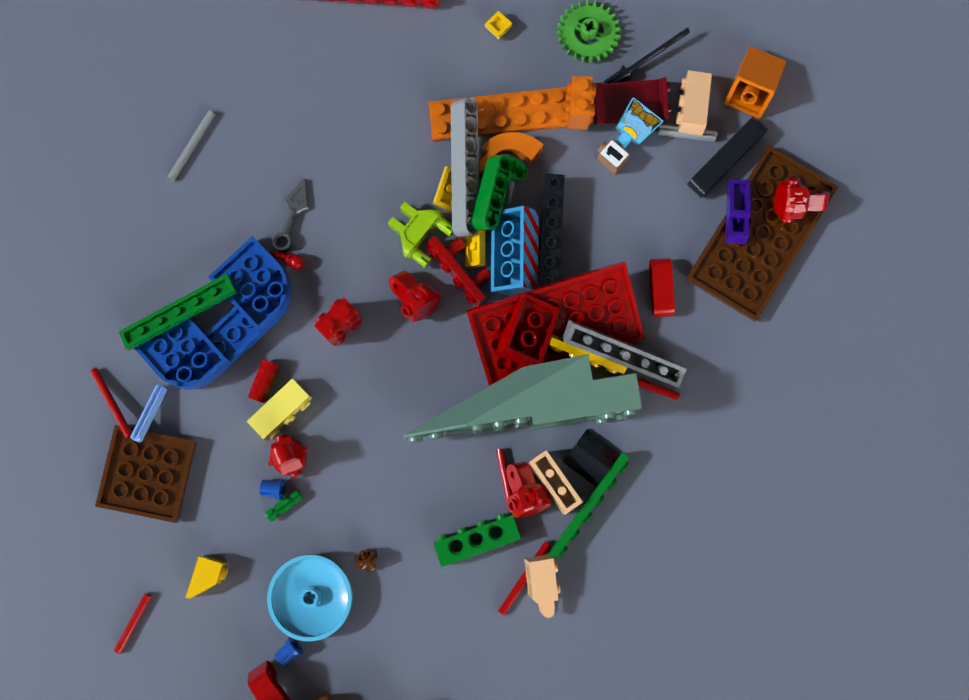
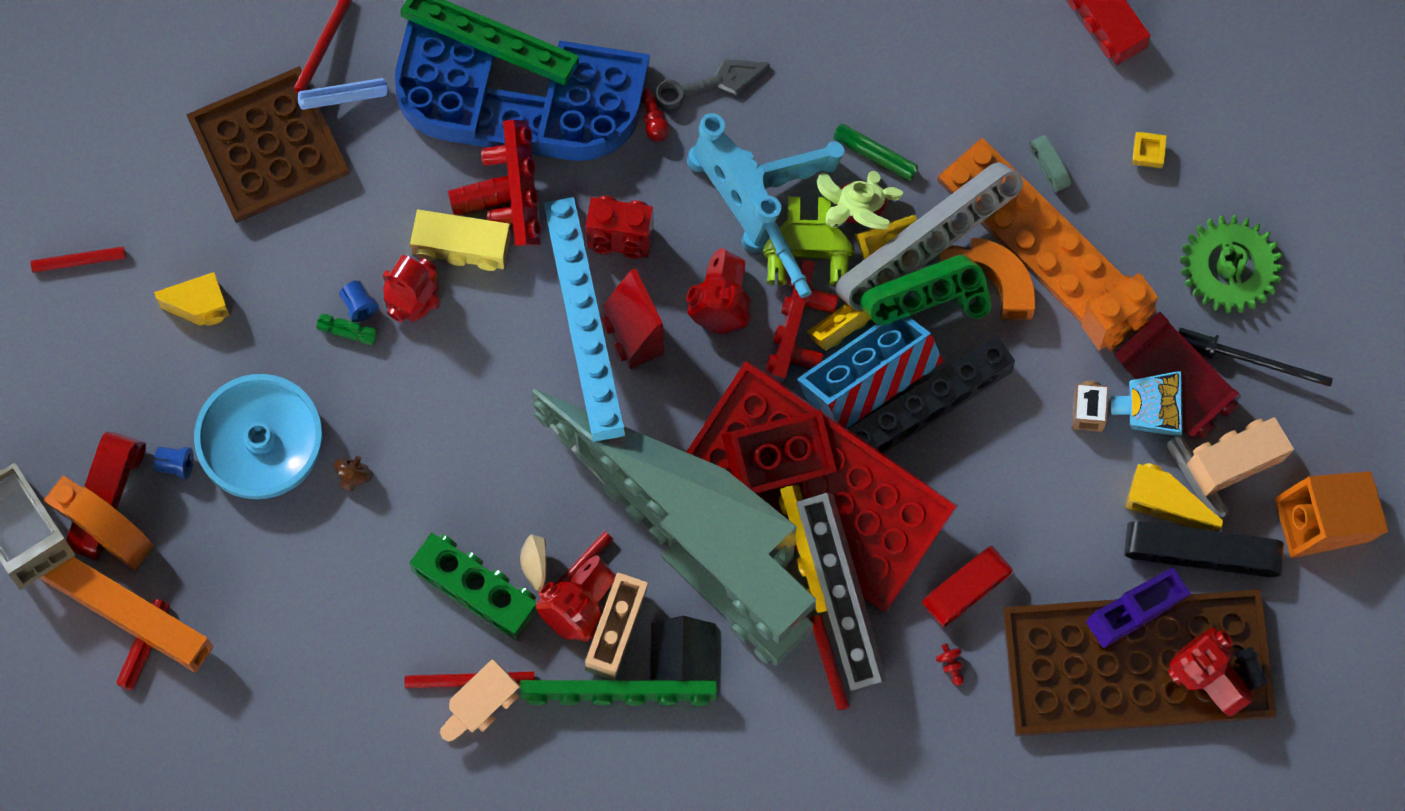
camera: 50 degrees right, 10 degrees down
(267, 350) = (521, 173): none -> red plate
(367, 242) = (745, 183): none -> medium azure piece
(382, 380) = (584, 320): none -> medium azure plate
(394, 160) = (875, 152): none -> green axle
(397, 353) = (633, 322): none -> red slope
(417, 189) = (857, 201): none -> yellowish green animal
(468, 78) = (1049, 163): none -> sand green beam
(488, 499) = (534, 561): none -> tan hat
(686, 155) = (1164, 497): none -> yellow slope
(695, 325) = (952, 665): none -> red hair
(809, 180) = (1251, 668): none -> black pin

